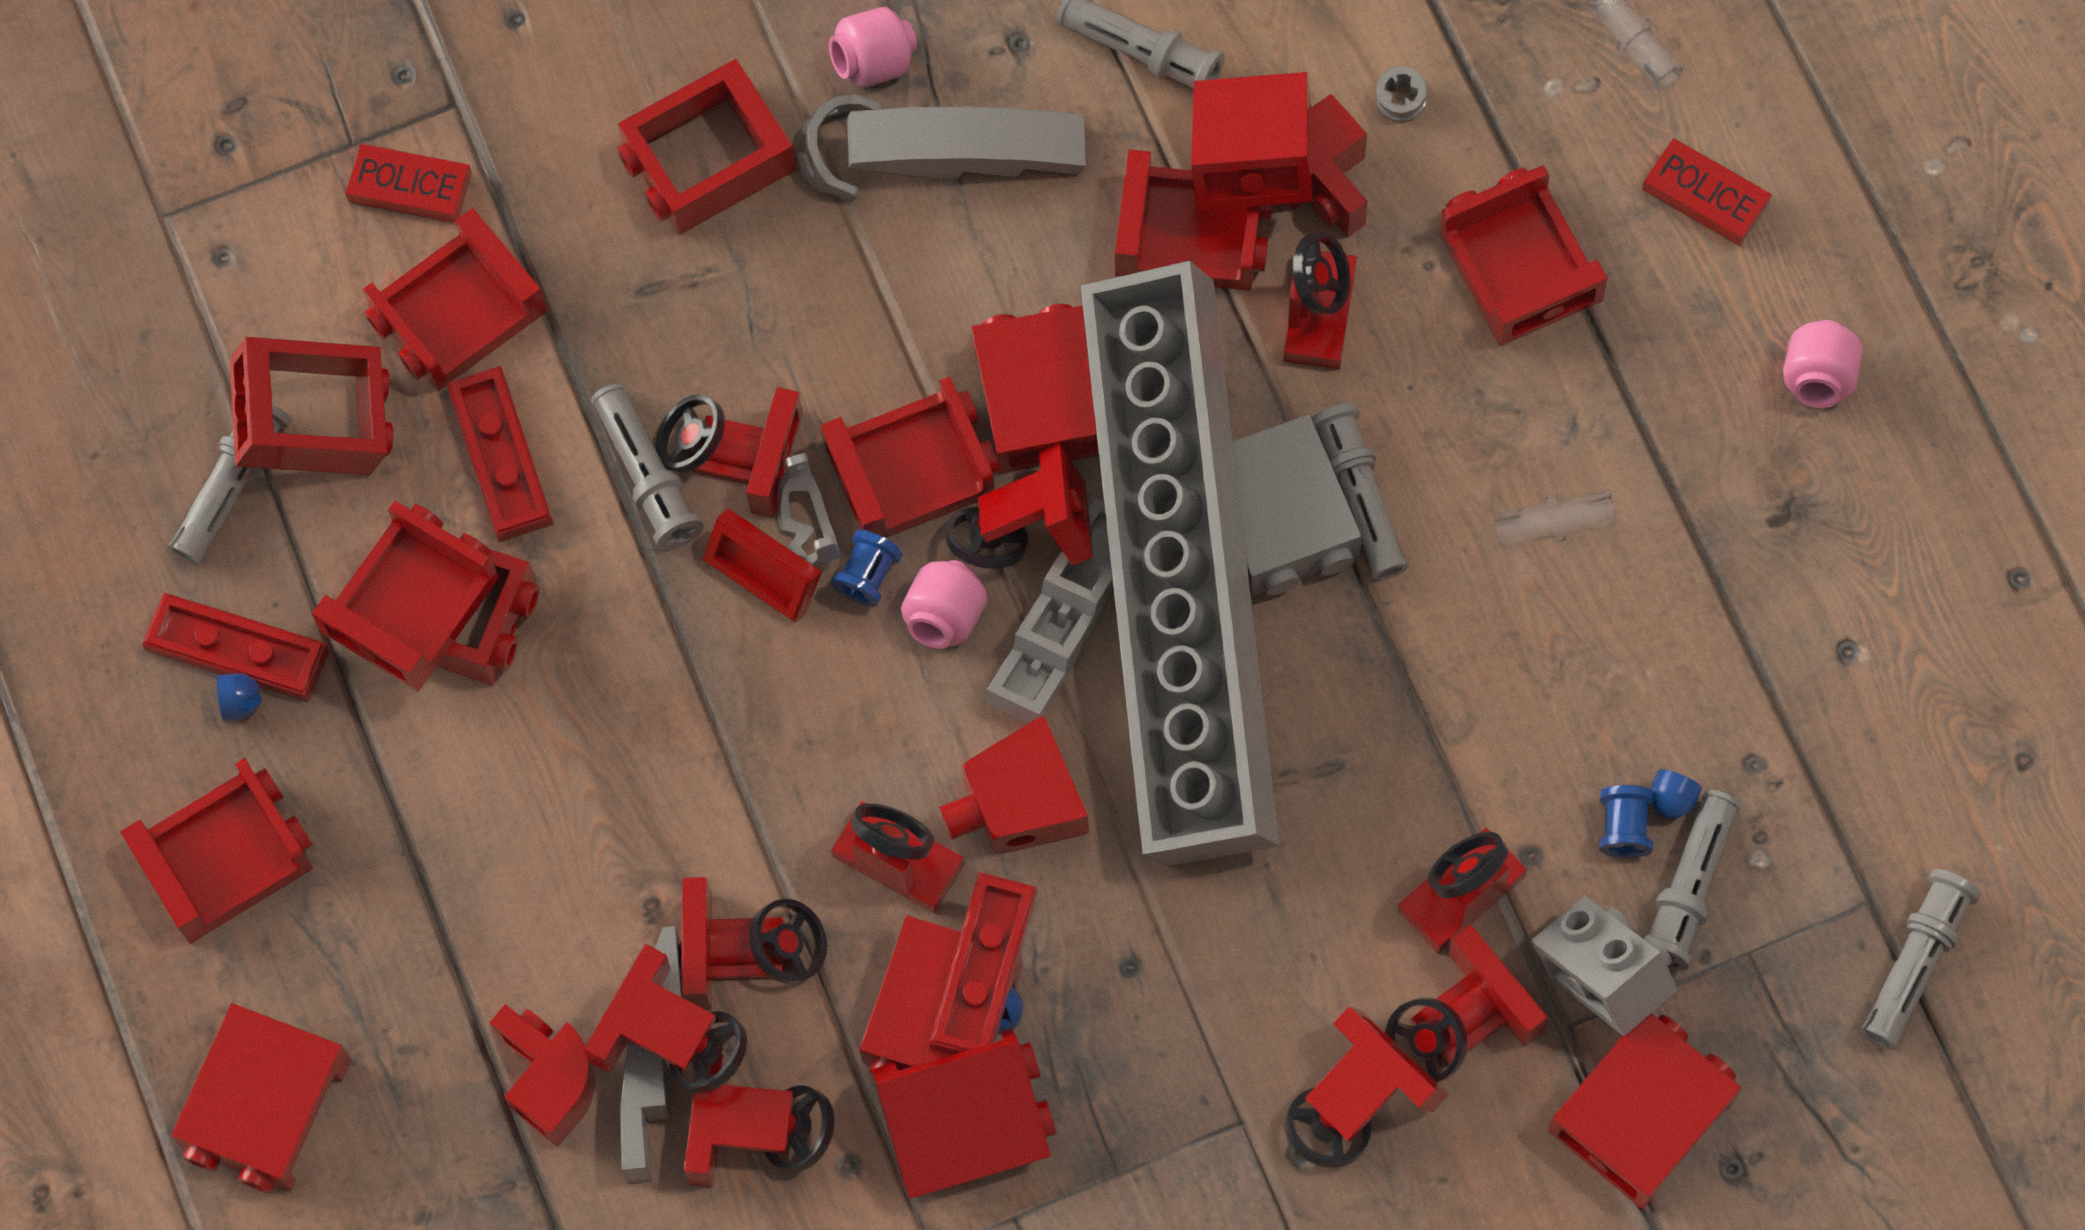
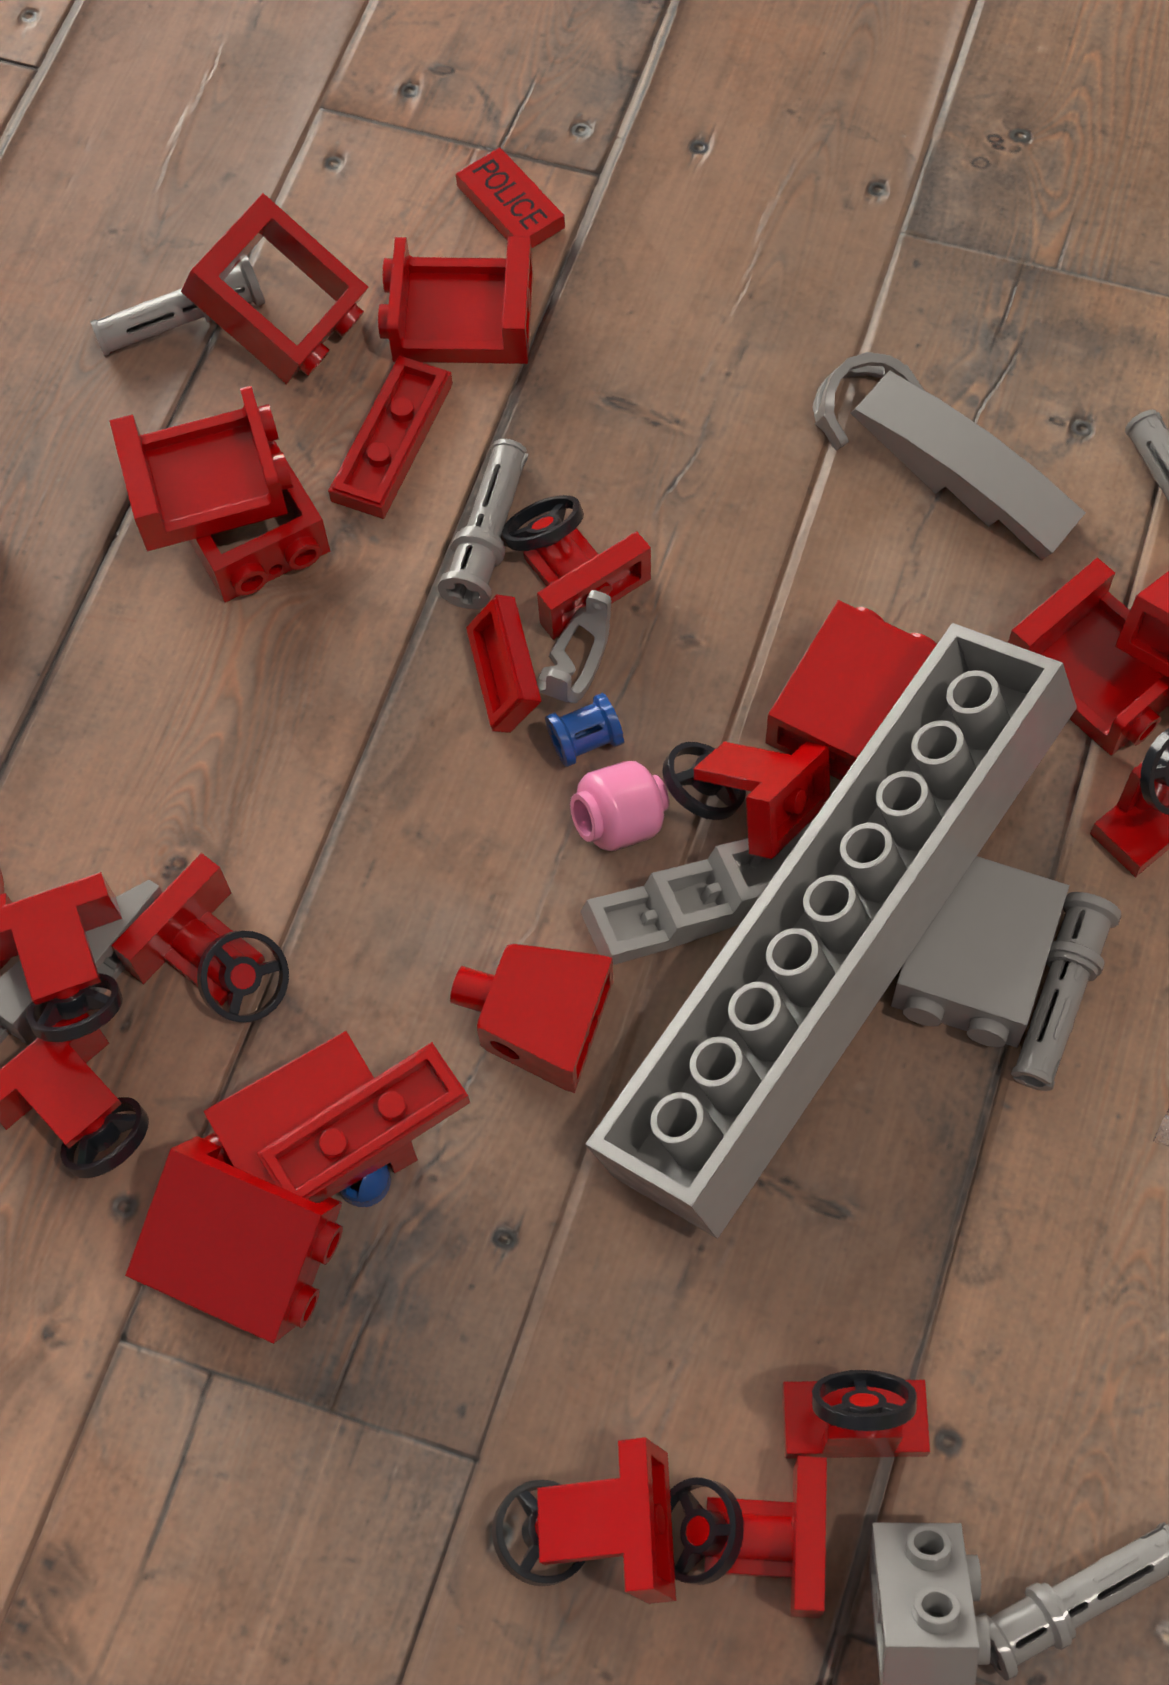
camera: 40 degrees right, 5 degrees down
(235, 645) = (69, 430): red tile -> none
(237, 696) = (29, 462): blue hinge -> none
(727, 187) = (750, 363): red window -> none
(872, 47) = (954, 341): bright pink head -> none
(898, 854) = (396, 977): red piece -> none
(912, 462) = (695, 675): red panel -> none
(1626, 821) = (1063, 1486): blue bush -> none
(1674, 794) = (1131, 1499): blue hinge -> none

